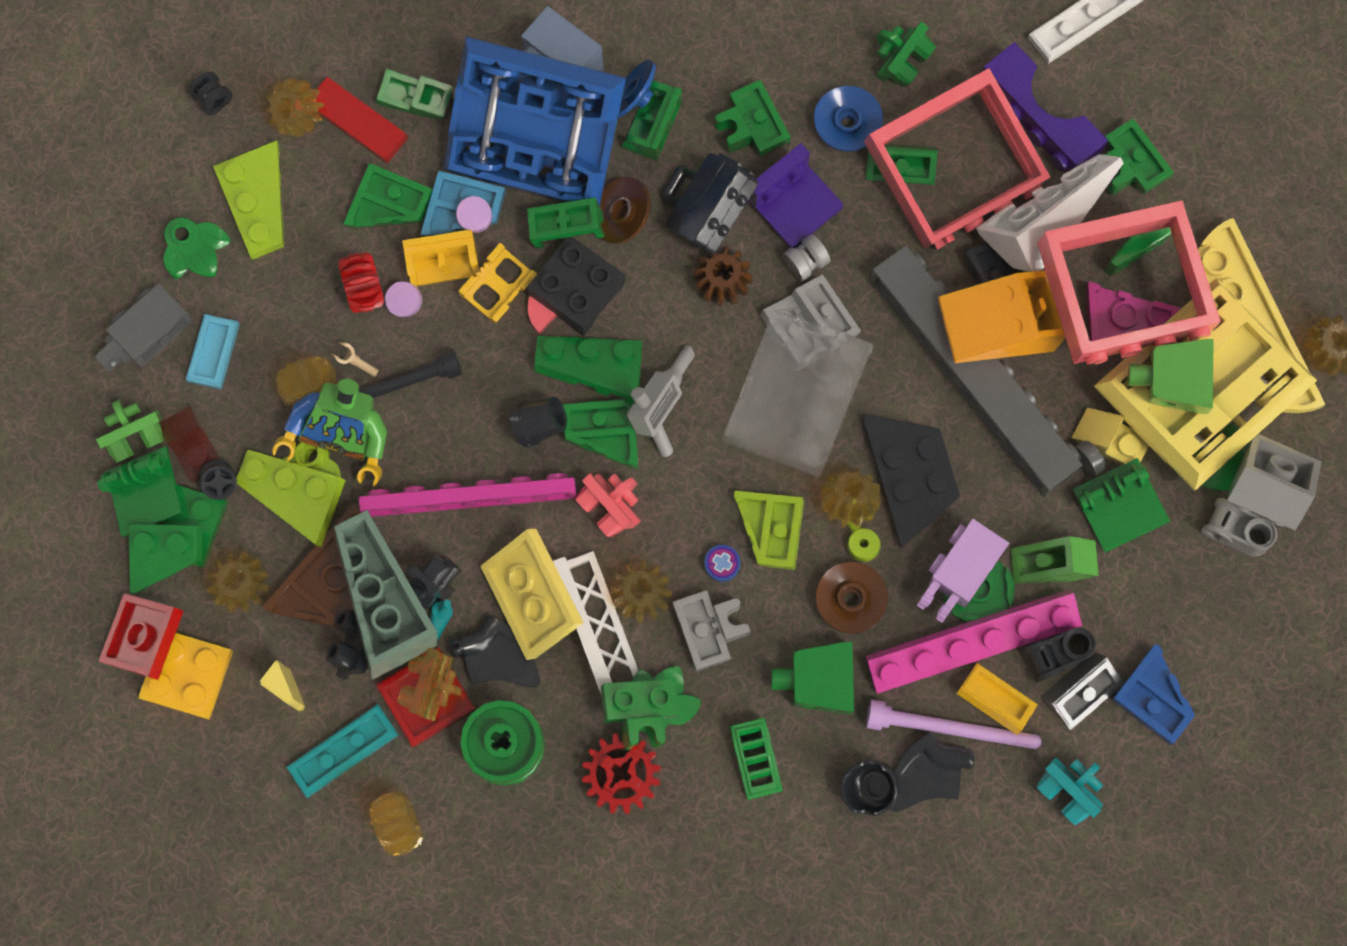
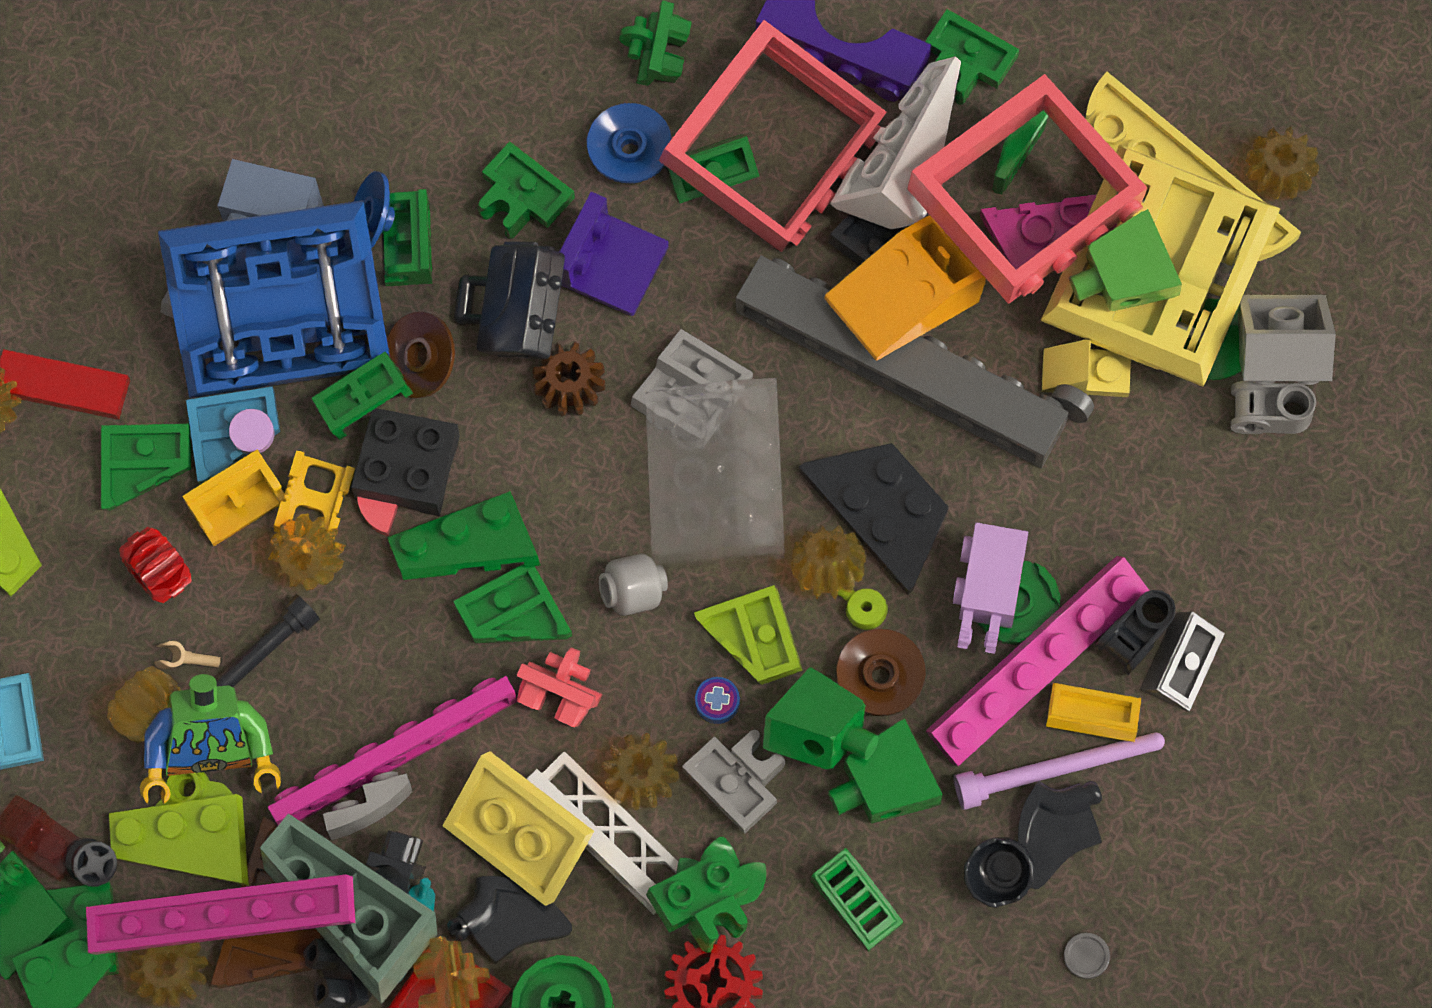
camera: 25 degrees left, 5 degrees down
(284, 563) = (220, 914): none -> dark pink plate
(403, 299) = (212, 563): lavender tile -> none
(415, 96) = (114, 329): green slope -> none
(443, 526) = (382, 797): none -> light grey slope
(473, 321) = (307, 552): none -> clear yellow gear
(537, 420) = (433, 631): black piece -> none
(657, 401) = (560, 550): light grey piece -> none
(699, 450) = (632, 584): none -> light grey head
(786, 616) = (818, 723): none -> green torso
(806, 257) = (654, 317): light grey wheel -> none
(907, 878) = (1086, 956): none -> flat silver piece
(1055, 561) = (1086, 532): bright green slope -> none
(1084, 801) = (1240, 781): teal hips -> none
(1121, 505) = (1131, 439): green hinge -> none
(1155, 697) = (1265, 633): blue wing -> none

